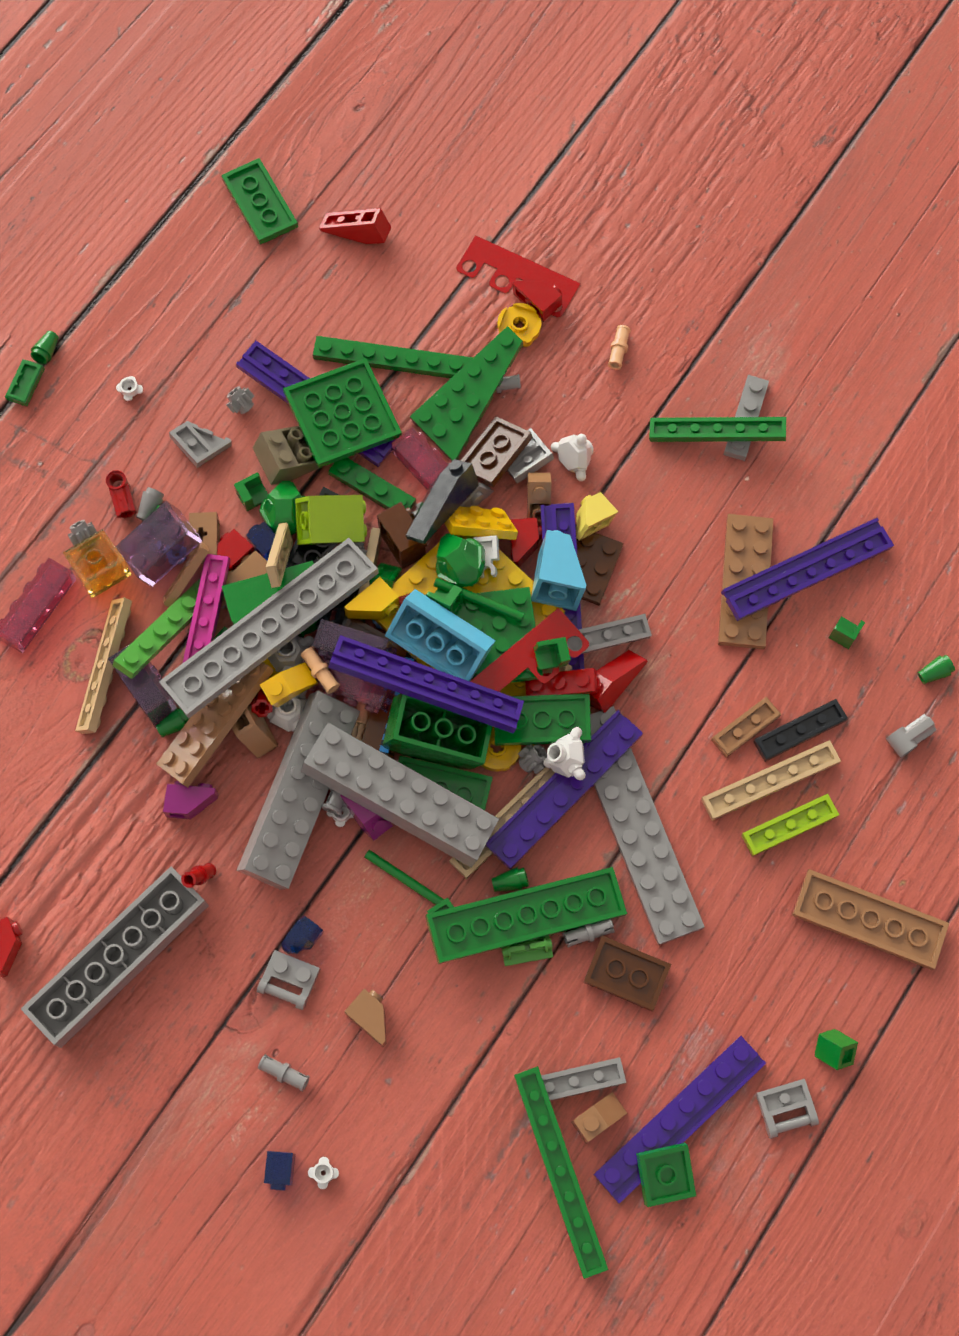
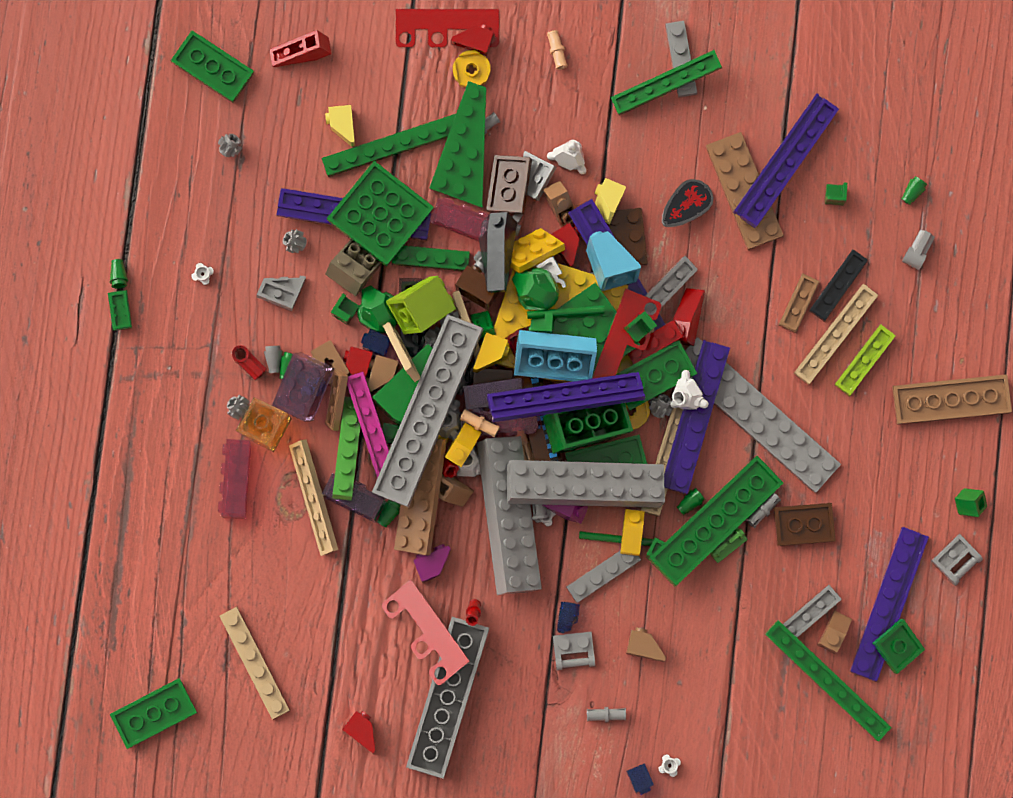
camera: 30 degrees left, 10 degrees up
(143, 872) = (434, 631): none -> piece
(230, 279) = (229, 145): none -> light grey gear
(357, 311) = (341, 122): none -> light yellow slope
(369, 910) = (601, 575): none -> light grey plate
(425, 879) = (632, 532): none -> yellow slope
(675, 561) = (687, 203): none -> shield

